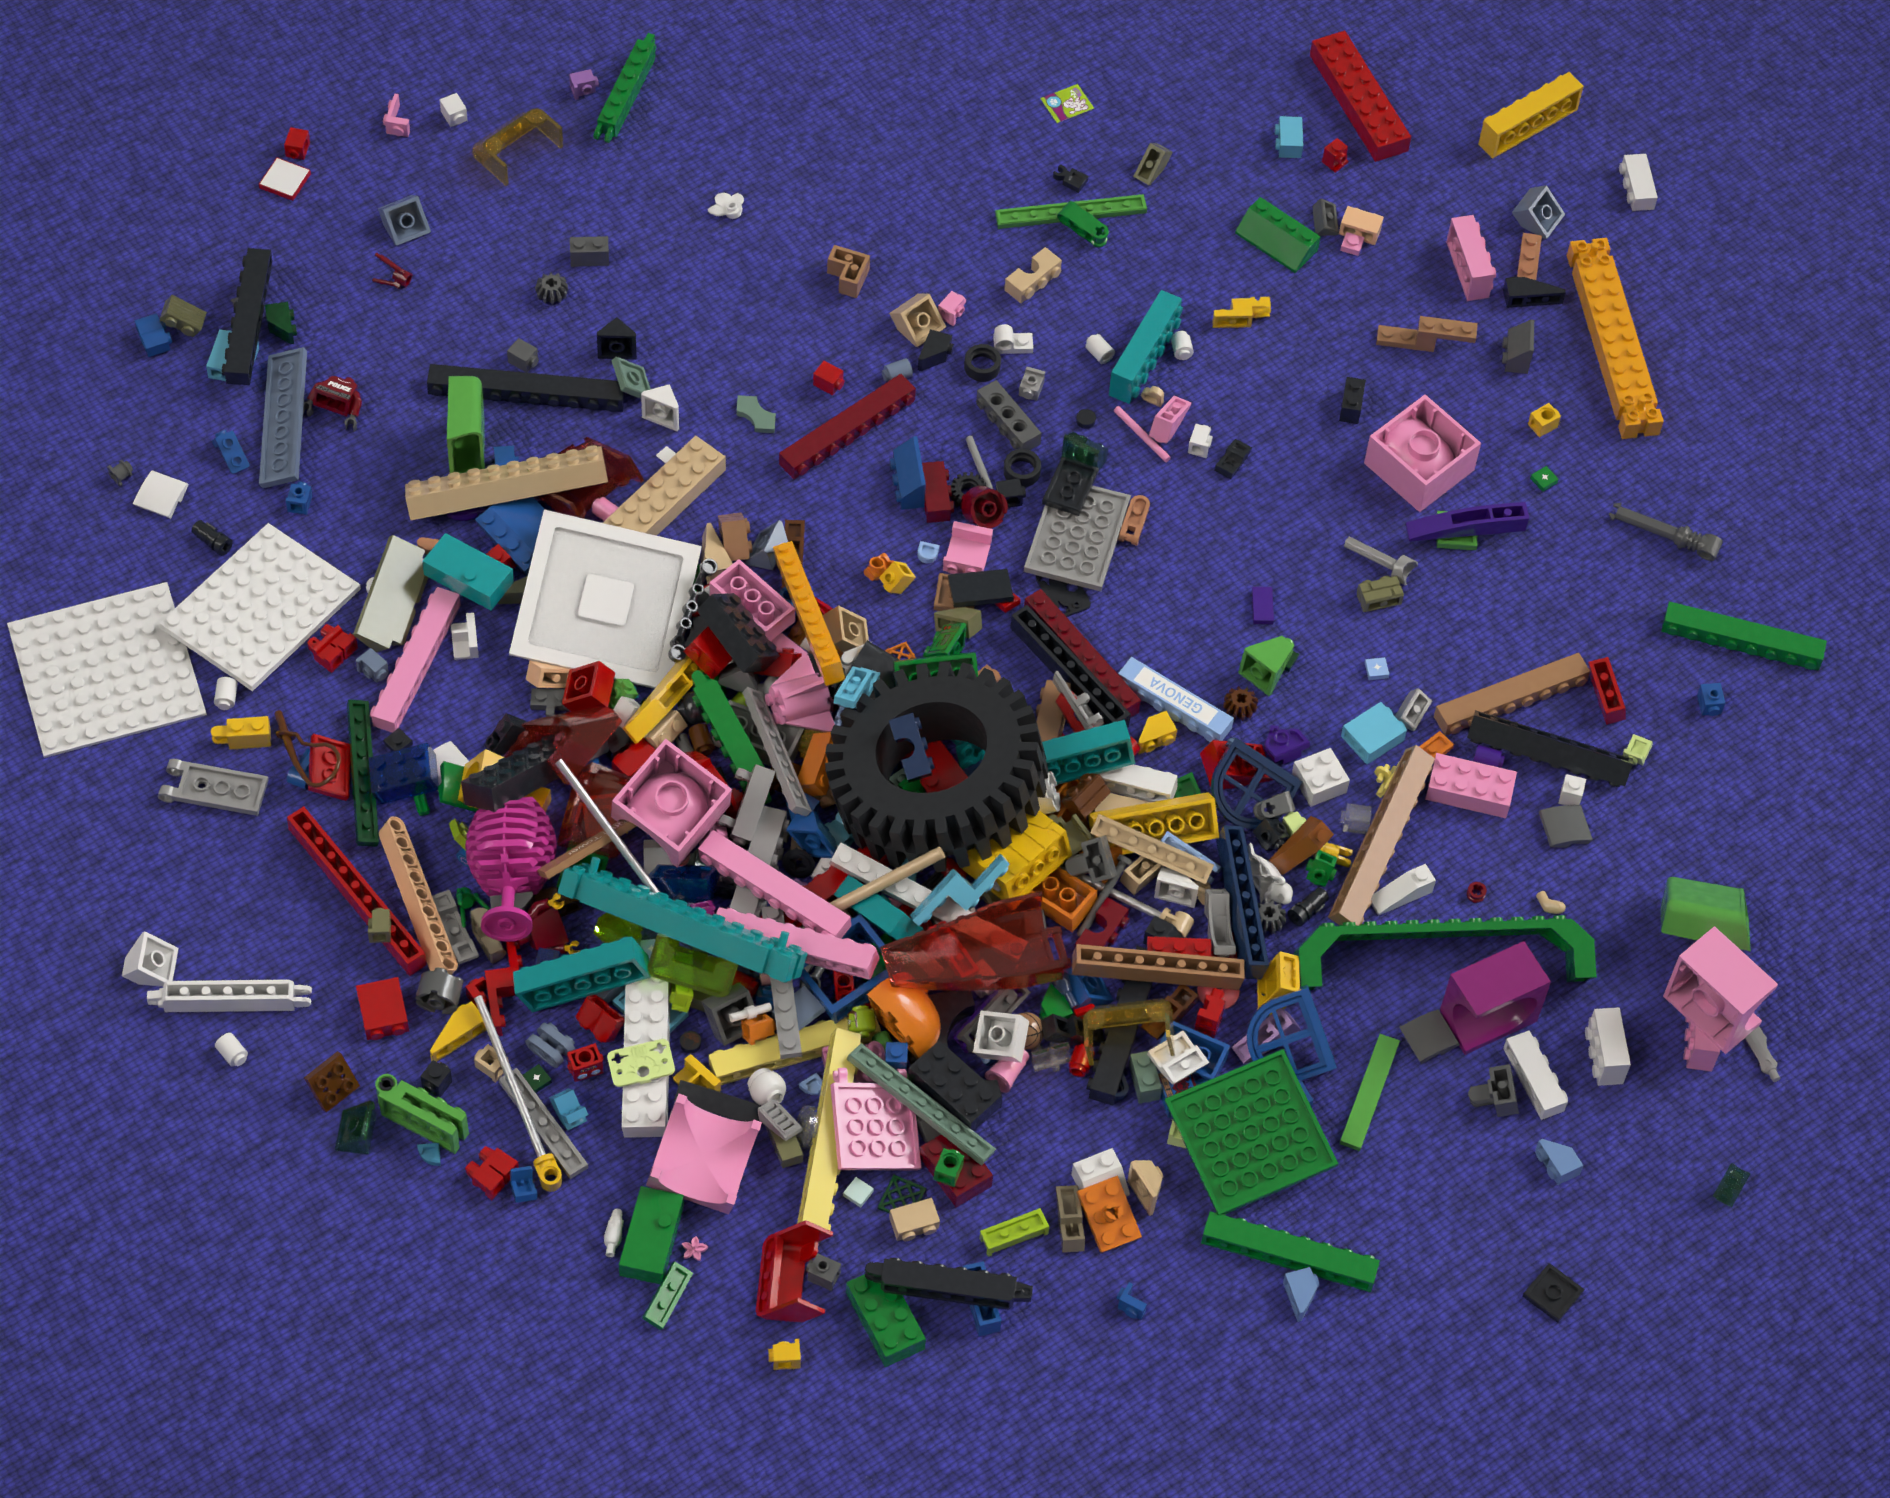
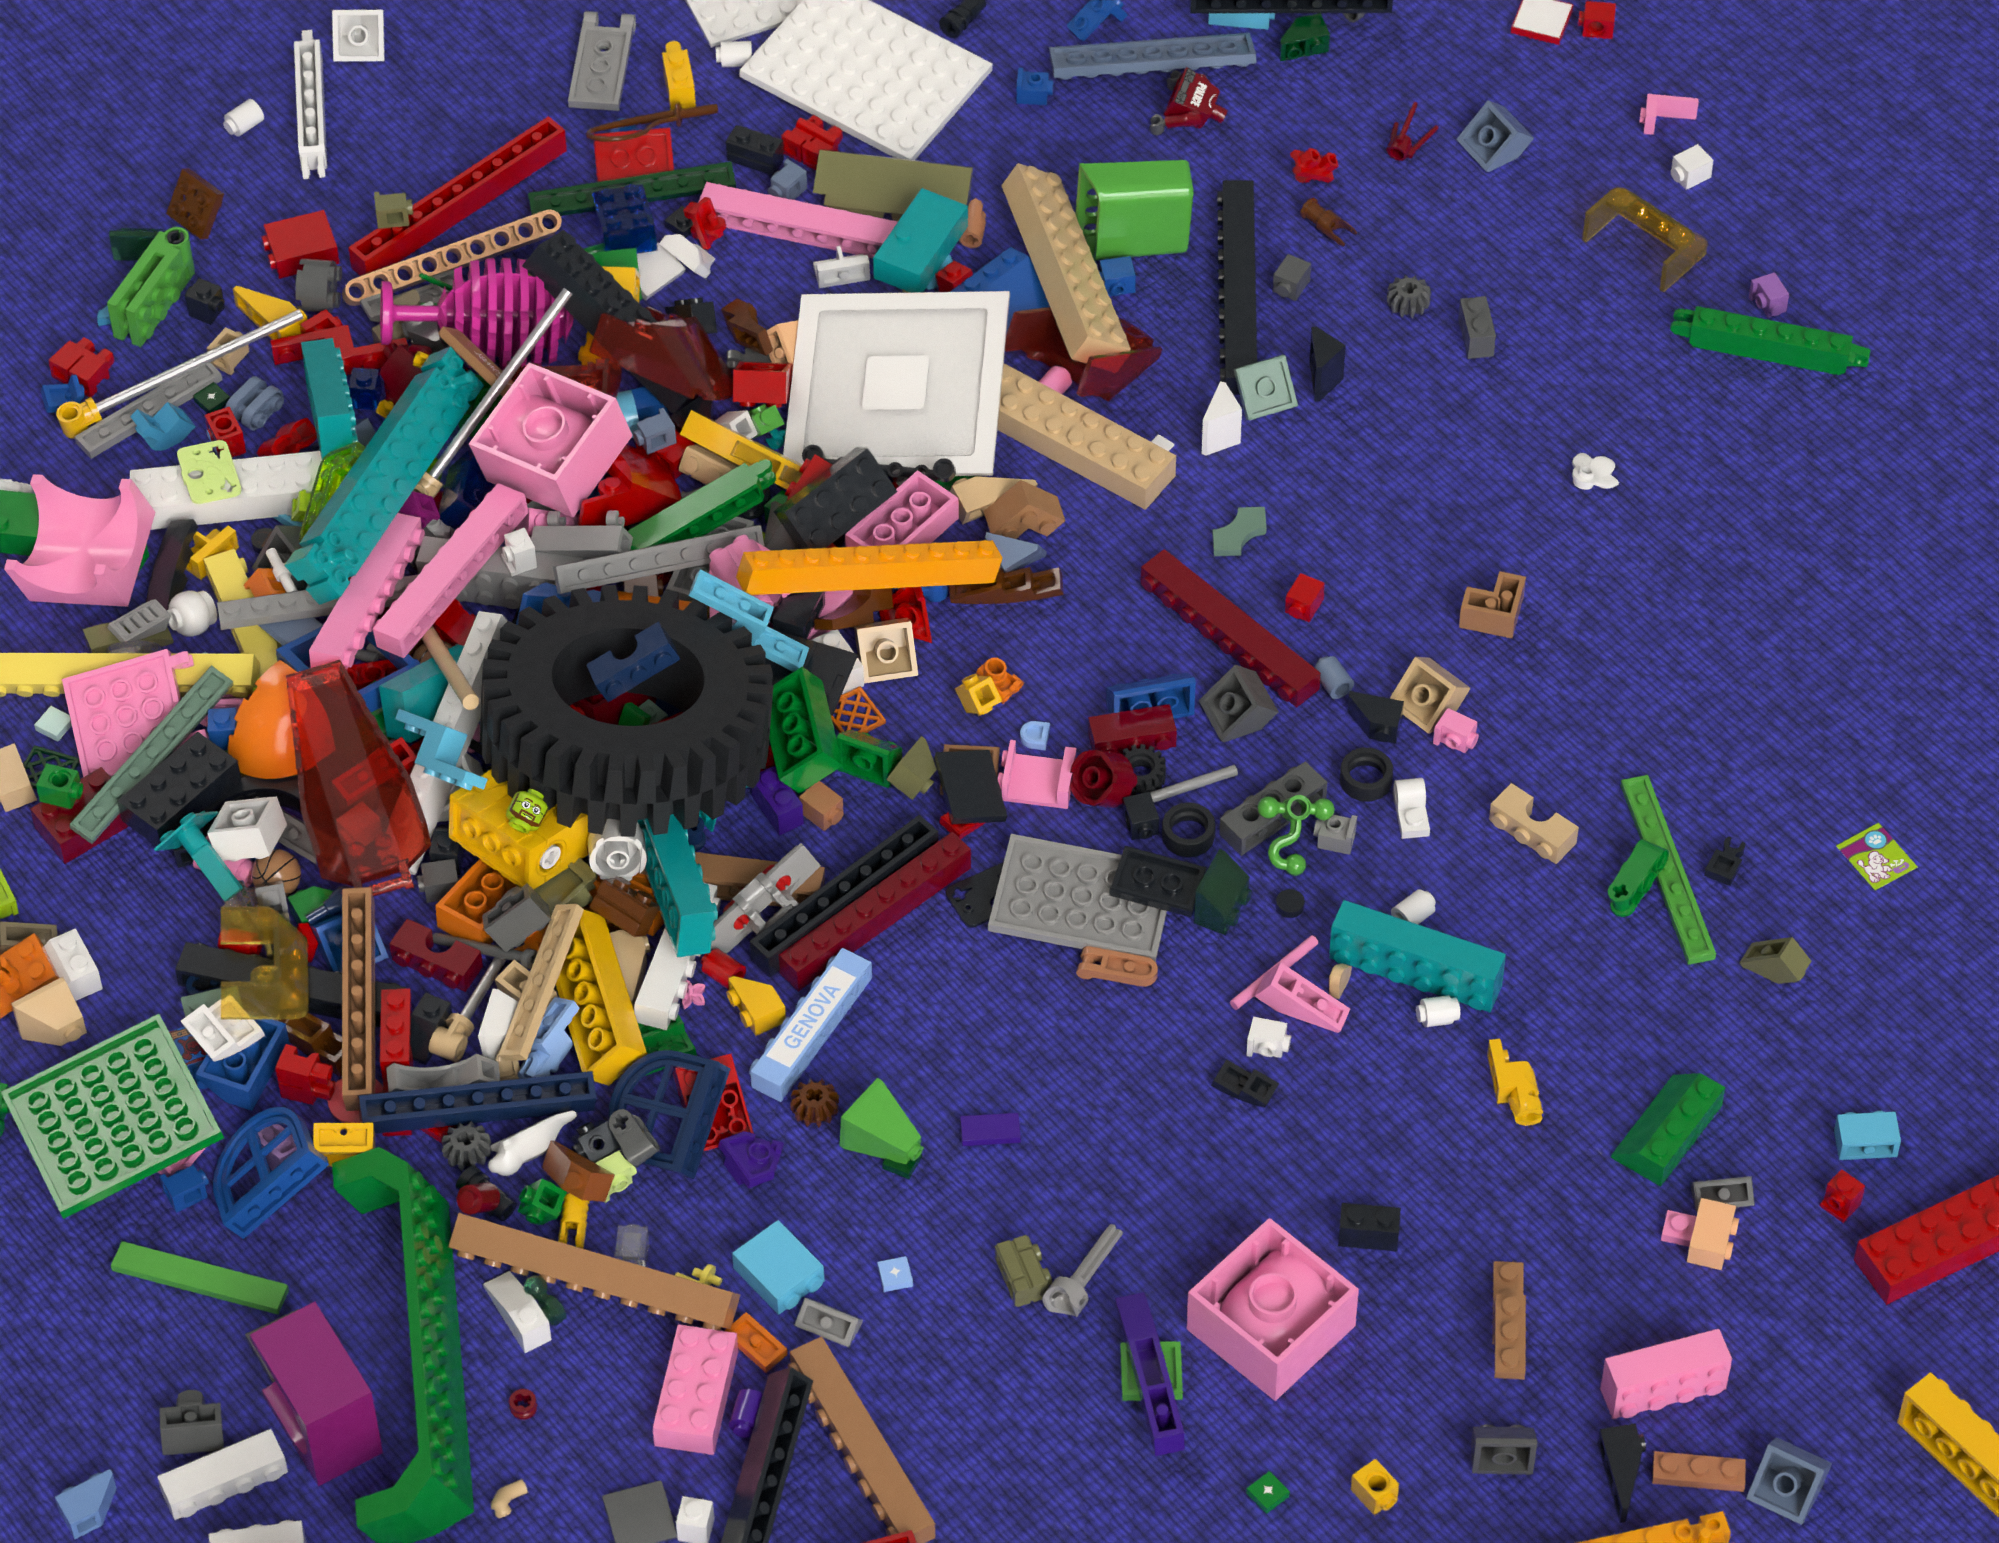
camera: 90 degrees right, 5 degrees down
(335, 685) = (754, 150): none -> black brick
(411, 721) = (706, 224): none -> red hips
(417, 329) = (1313, 165): none -> red hips
(440, 734) = (689, 254): none -> white slope
(467, 330) = (1325, 220): none -> reddish brown piece
(531, 697) = (743, 324): none -> reddish brown slope
(633, 755) = (655, 432): none -> sand blue brick
(762, 841) = (518, 552): none -> white brick
(918, 422) = (1238, 704): none -> dark grey slope
(1008, 1071) = (202, 852): none -> teal piece
(1027, 398) = (1269, 807): none -> bright green piece
(1037, 825) = (527, 811): none -> lime head
(1321, 777) = (696, 1201): white brick -> none
(1324, 902) = (478, 1198): none -> dark red brick
(1394, 873) = (550, 1306): none -> clear green plate

